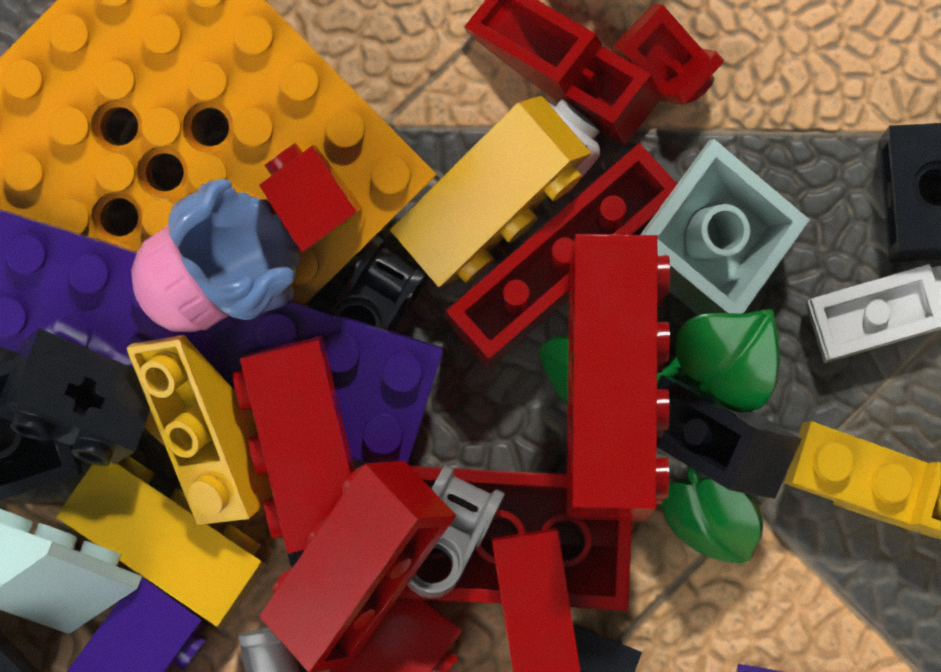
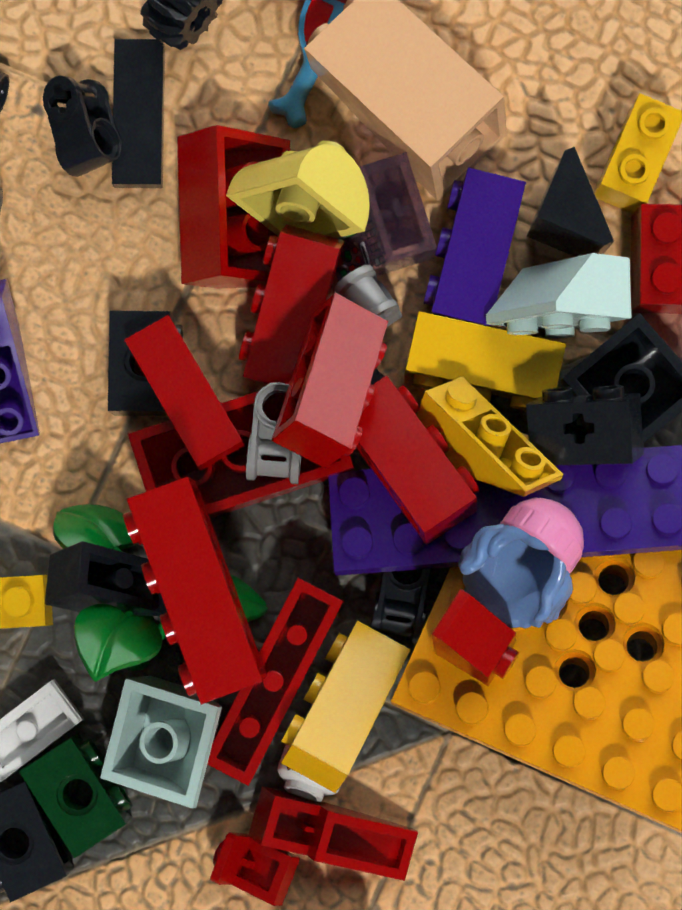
camera: 160 degrees right, 5 degrees up
(849, 180) = (77, 824): none -> dark green brick

